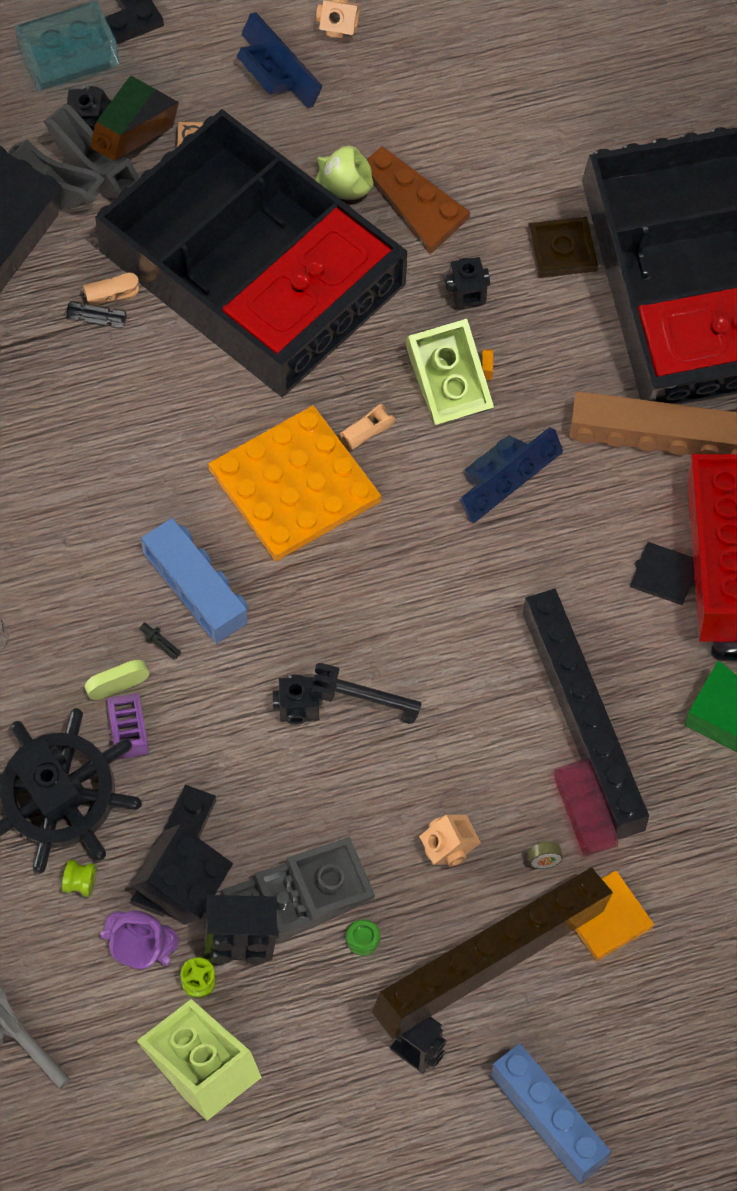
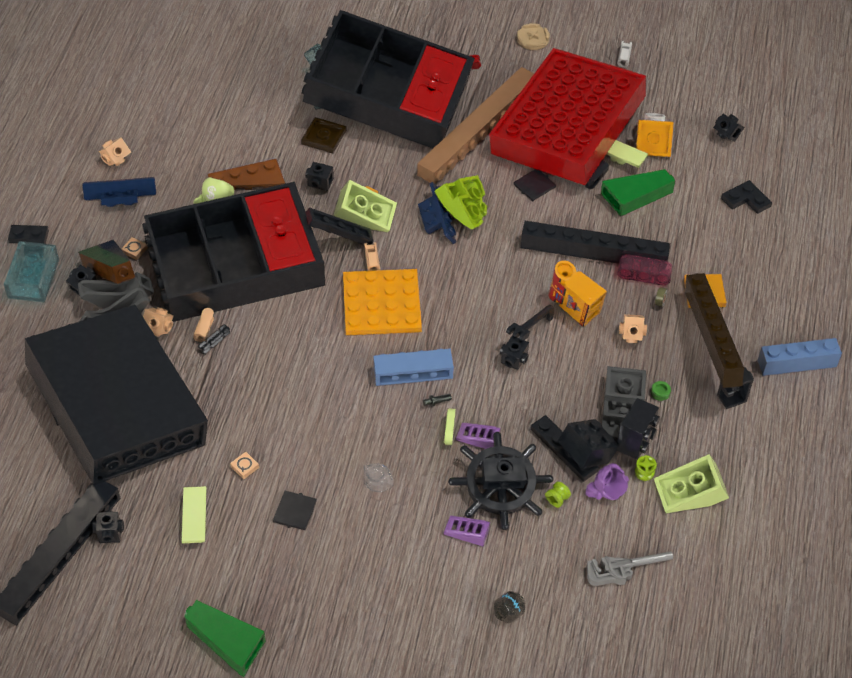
camera: 60 degrees left, 10 degrees down
(75, 230) = (158, 320): none -> light nougat brick
(373, 353) = (339, 226): none -> black plate
(456, 727) = (576, 293): none -> light orange piece
(552, 493) = (464, 200): none -> lime brick

